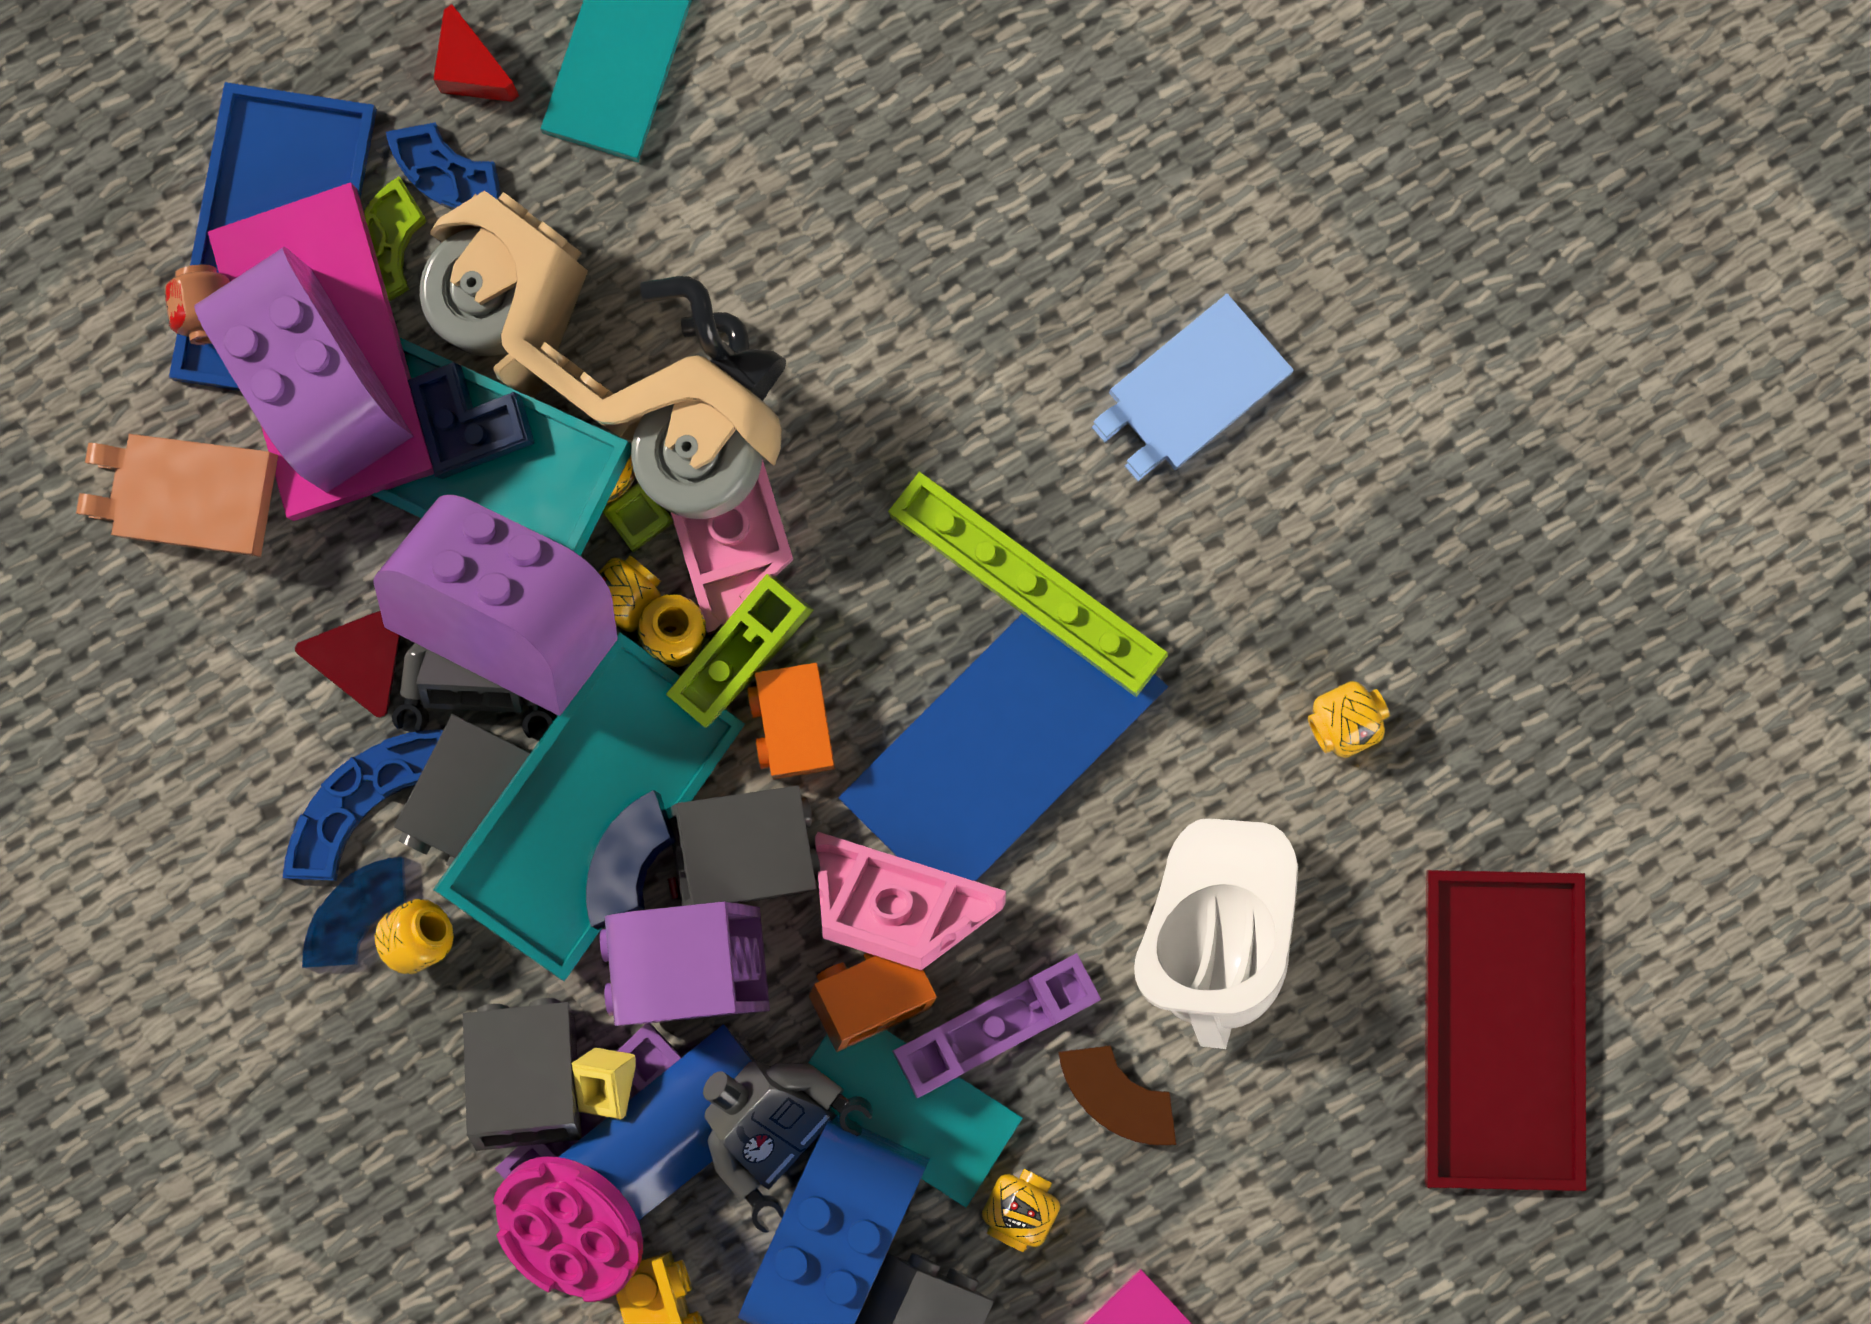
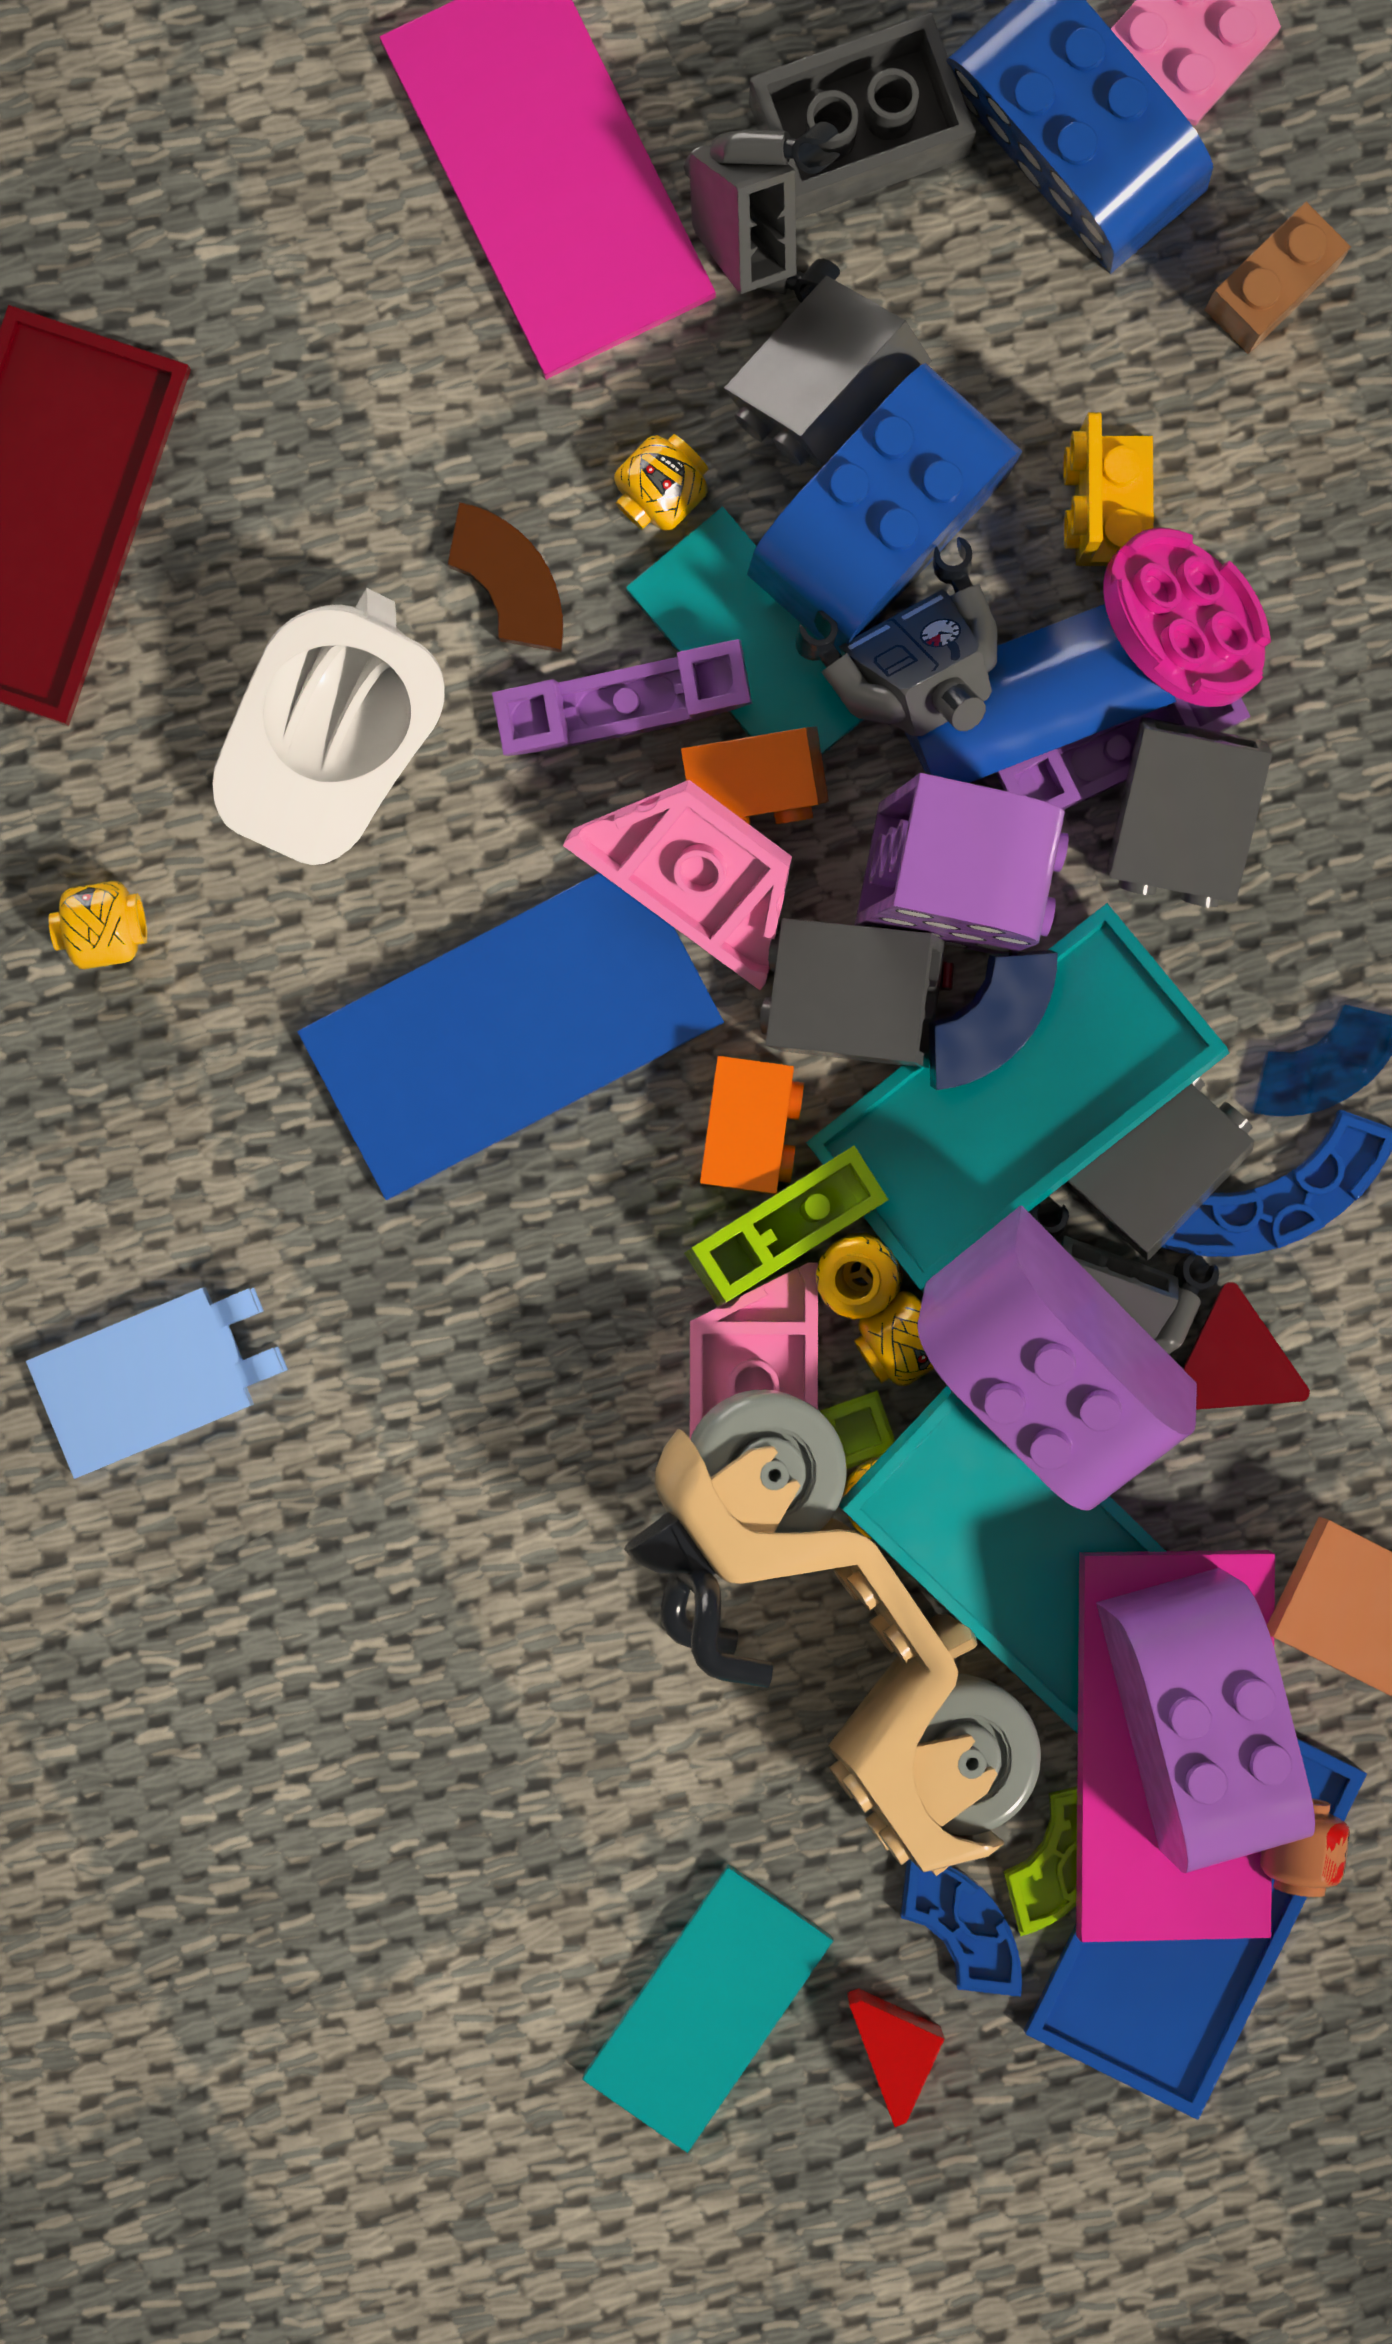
camera: 170 degrees left, 5 degrees up
(414, 936) = (1266, 1011): yellow head -> none
(464, 435) = (1043, 1590): dark blue tile -> none
(604, 1082) = (1095, 770): light yellow slope -> none
(1028, 584) = (422, 1200): lime plate -> none

